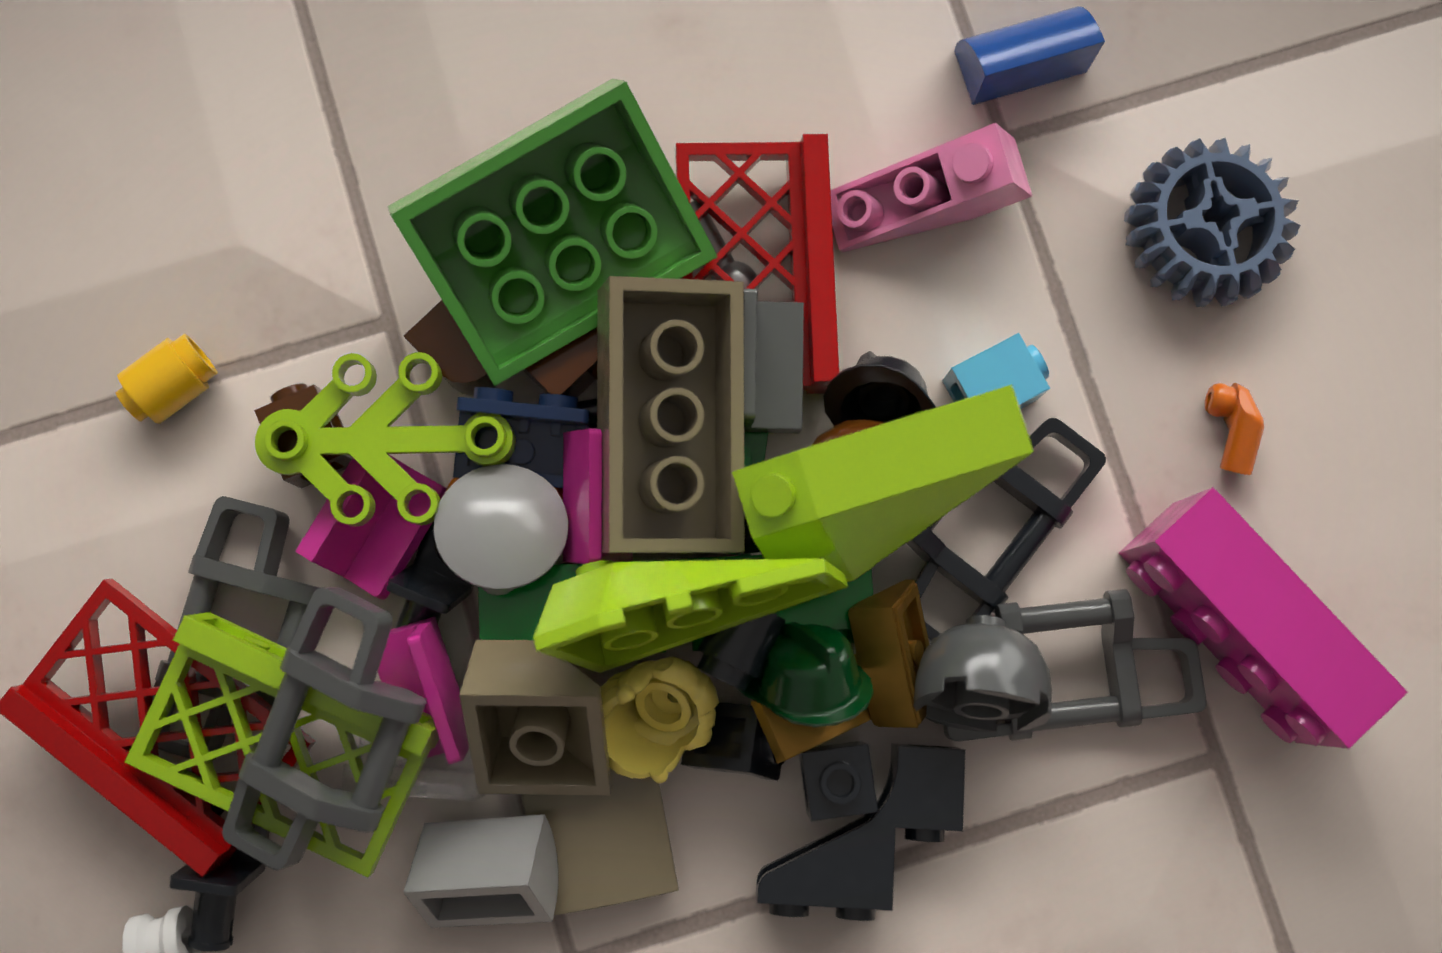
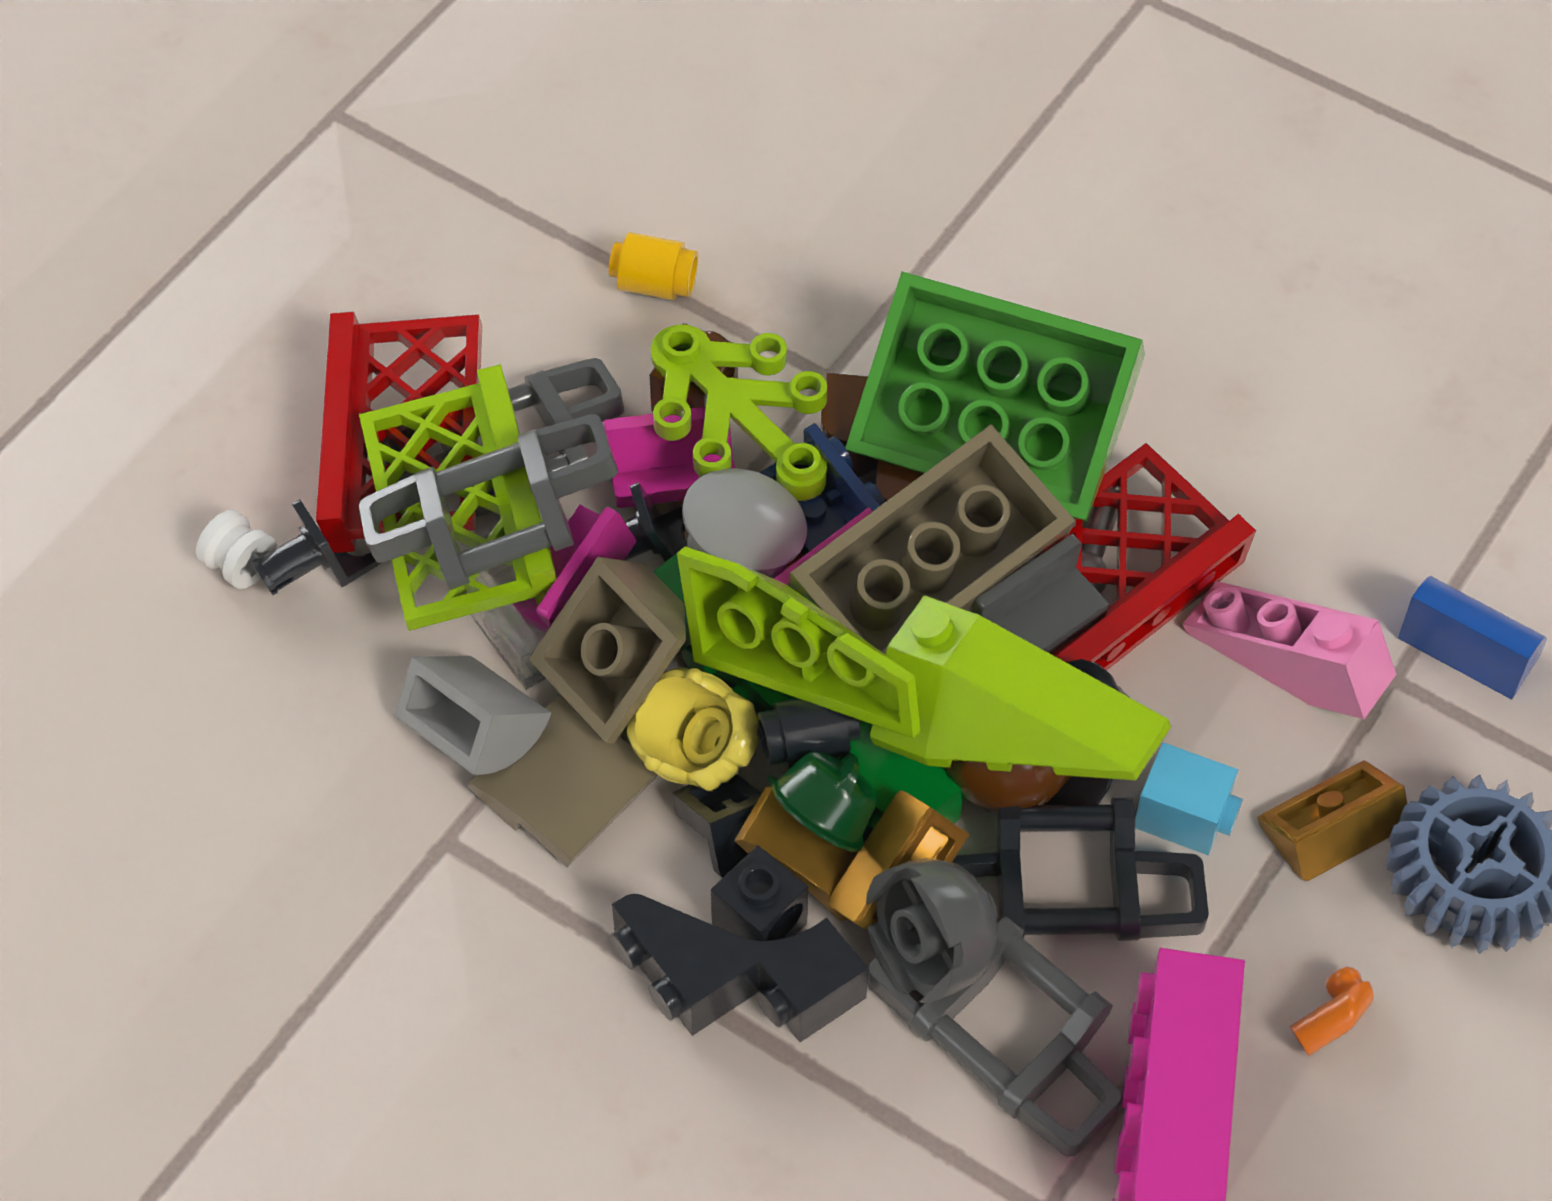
camera: 50 degrees right, 25 degrees down
(1083, 285) = (1335, 819): none -> pearl gold slope

